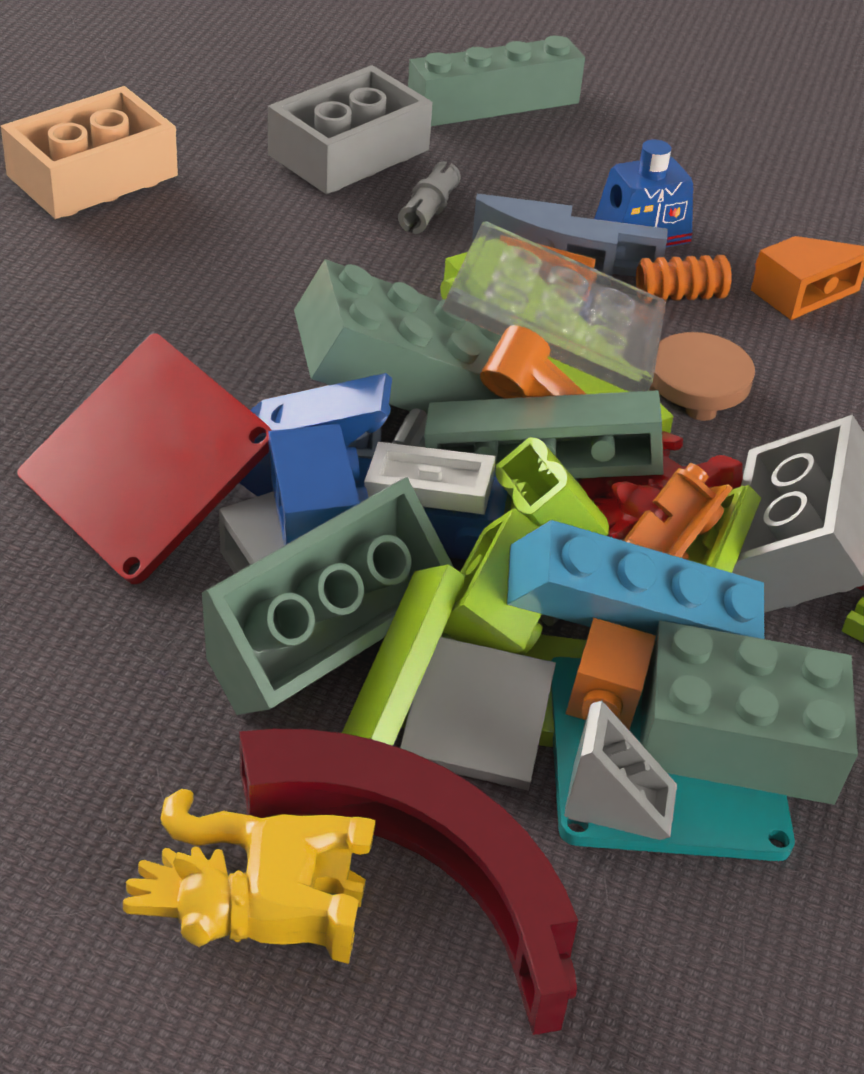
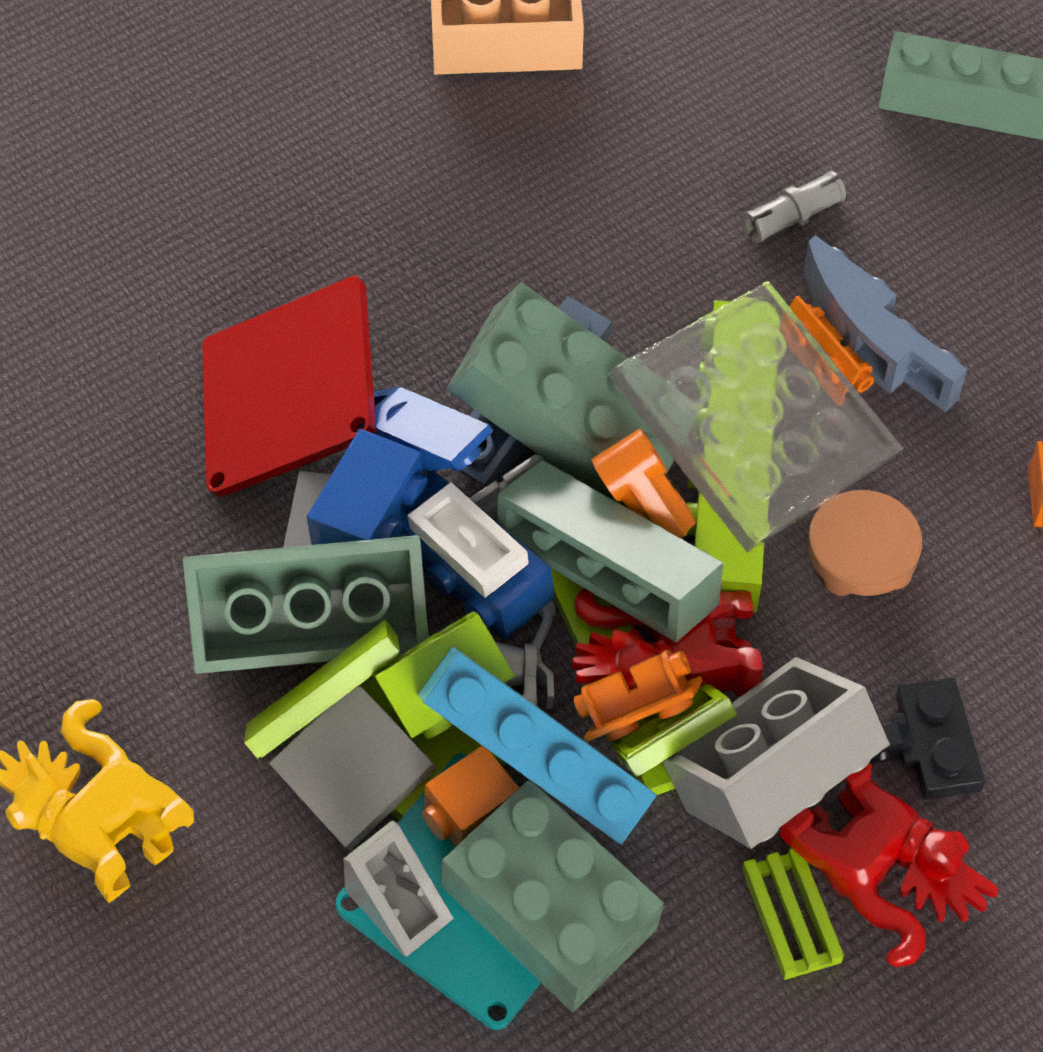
camera: 40 degrees right, 15 degrees up
(349, 128) = (771, 91): light grey brick -> none
(443, 822) = (213, 764): dark red arch -> none
(546, 489) = (543, 617): lime brick -> none
(650, 193) = (986, 324): blue torso -> none
(685, 277) = (951, 428): orange piece -> none

